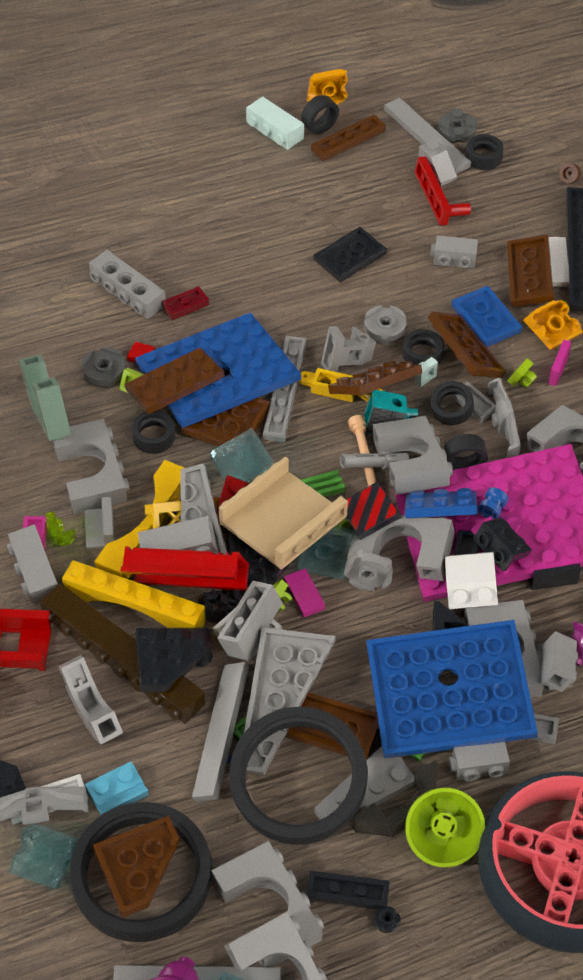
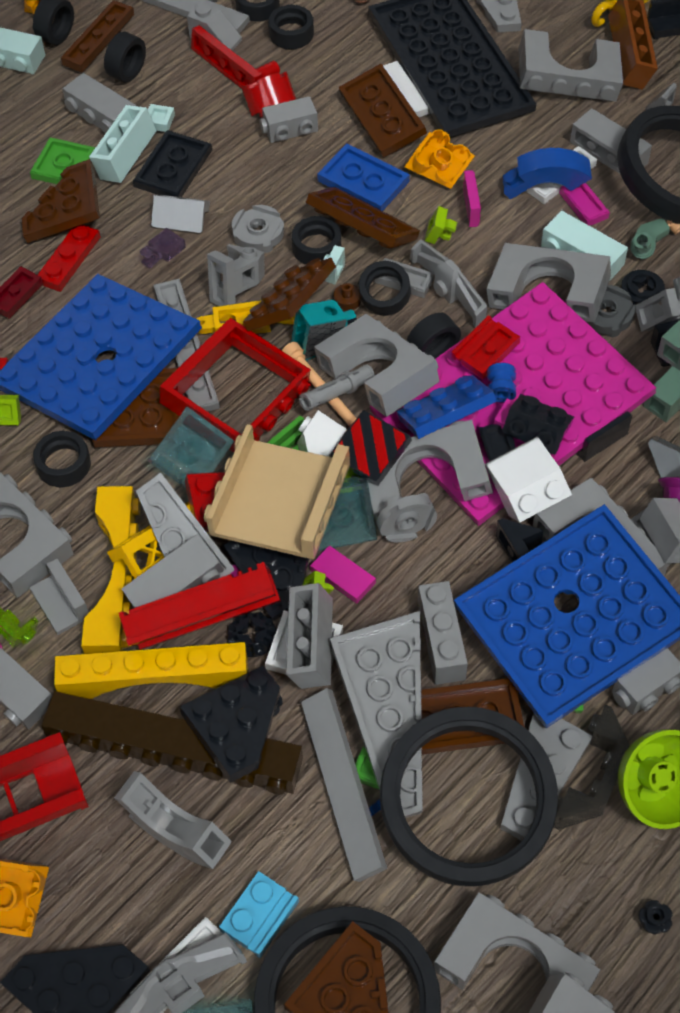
camera: 25 degrees left, 5 degrees up
(174, 380) = (57, 388): reddish brown plate -> none
(237, 292) = (68, 257): none -> red plate
(254, 254) = (65, 205): none -> reddish brown plate
(272, 223) = (56, 157): none -> bright green tile
(295, 399) = (257, 348): none -> red window
(308, 310) = (164, 246): none -> clear purple plate
(319, 224) = (123, 143): none -> light aqua brick
(320, 191) = (94, 101): none -> light grey brick
(334, 290) = (179, 213): none -> light grey panel
(340, 485) = (320, 434): none -> white slope
(347, 890) = (594, 904): black plate -> none
(348, 661) = (442, 633): none -> light grey brick
(350, 154) = (124, 56): none -> black tyre
(358, 215) = (161, 116): none -> light aqua plate
(422, 399) = (347, 296): none -> reddish brown tile
(451, 225) = (267, 92): none -> red cylinder
(496, 192) = (286, 15): none -> black tyre
(497, 472) = (485, 346): none -> red plate

